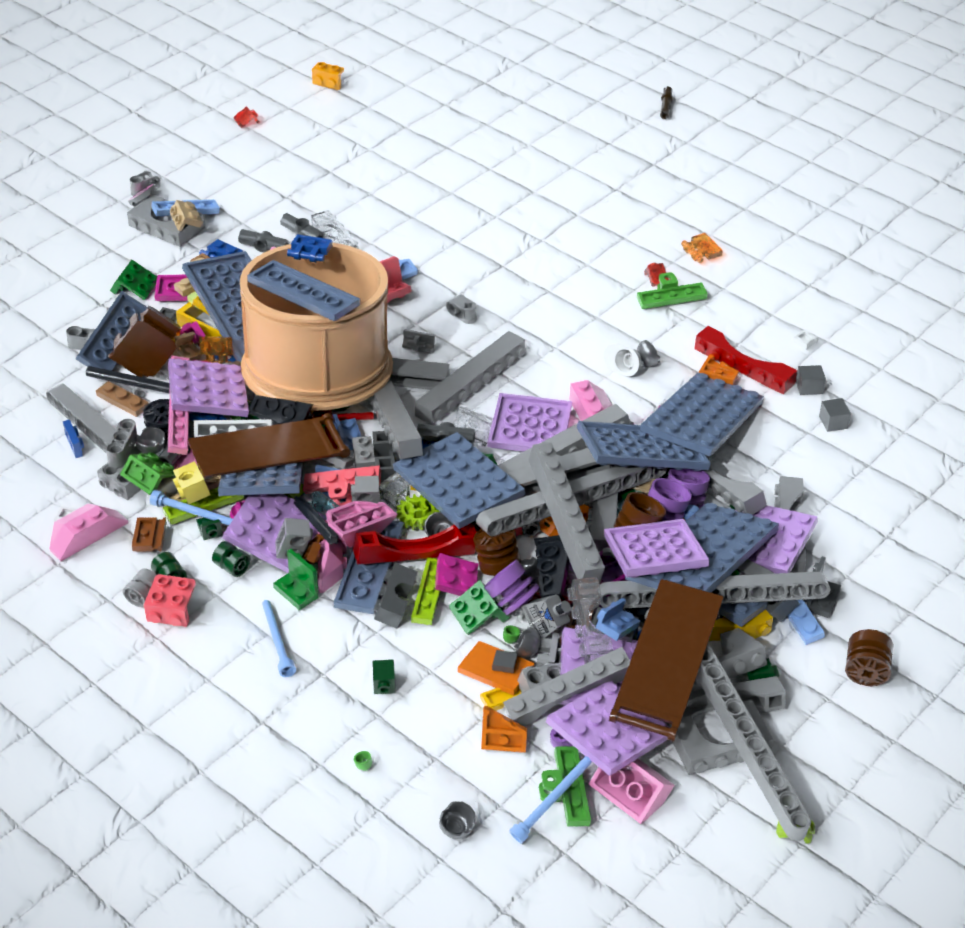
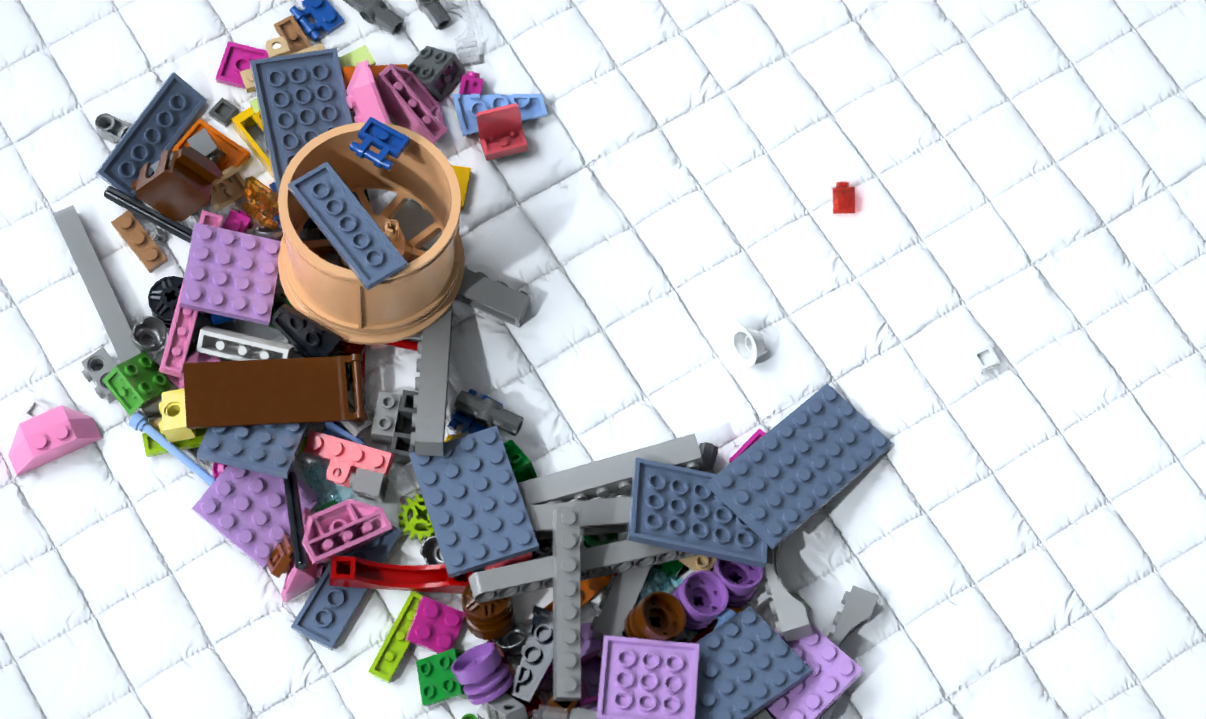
camera: 15 degrees right, 25 degrees up
(72, 434) = (69, 305): blue plate -> none
(121, 443) = (115, 342): light grey beam -> none
(135, 279) = (200, 43): green bracket -> none
(138, 588) = (91, 548): light grey wheel -> none
(149, 534) = (119, 467): dark orange plate -> none
(167, 564) = (125, 530): dark green wheel -> none
(169, 600) = (116, 575): coral bracket -> none
(193, 327) = (248, 161): dark pink bracket -> none
(209, 528) = (185, 477): dark green bracket -> none
(231, 559) = (198, 535): dark green wheel -> none
(286, 666) = (217, 697): light blue piece -> none
(293, 535) = (265, 538): light grey brick -> none
(300, 583) = (257, 590): green bracket -> none
(347, 429) = (381, 370): medium blue bracket -> none
(391, 607) = (347, 652): dark grey arch -> none
(418, 341) = (510, 241): light grey hips -> none
(462, 309) = (580, 197): light grey piece -> none
(469, 378) = (552, 319): light grey brick -> none
(475, 420) = (528, 398): clear plate -> none
(527, 421) = (596, 412): lavender plate -> none
(588, 399) = (683, 406): bright pink slope -> none
(648, 353) = (776, 339): flat silver hair -> none
(670, 293) = (848, 237): bright green plate -> none
(705, 246) = (926, 161): clear orange plate -> none
(719, 371) = (854, 387): orange wing -> none
(771, 374) = (919, 414): red arch -> none
(810, 380) = (959, 434): dark grey piece -> none
(835, 414) = (964, 499): dark grey piece -> none

